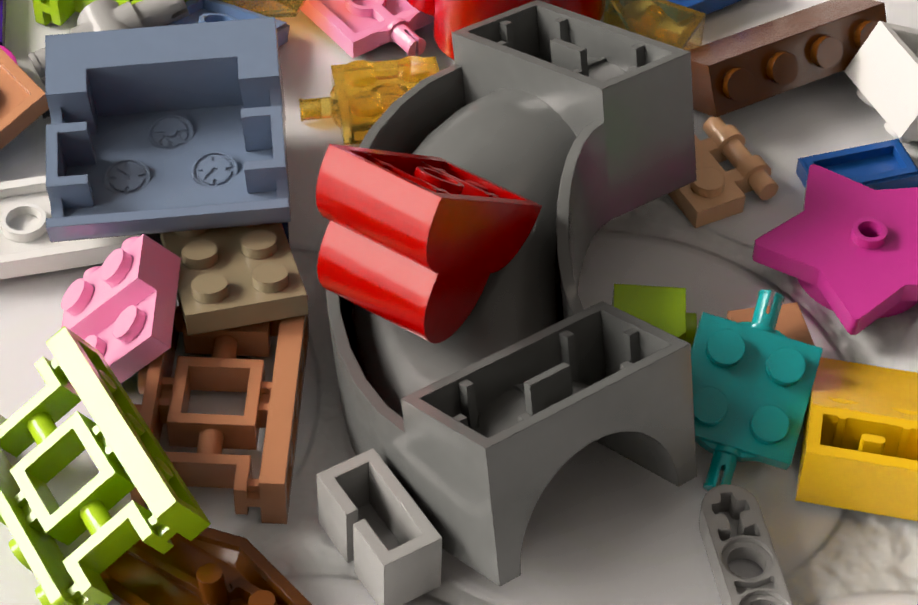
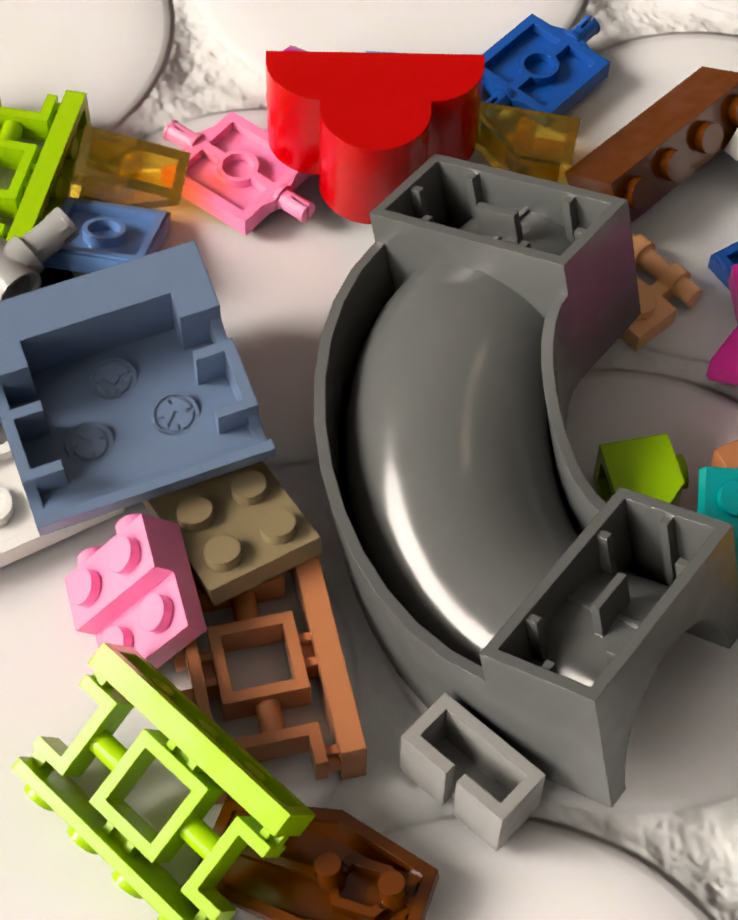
camera: 15 degrees left, 10 degrees up
(365, 92) = (291, 276): clear yellow plate -> none
(414, 235) = (434, 467): red brick -> none

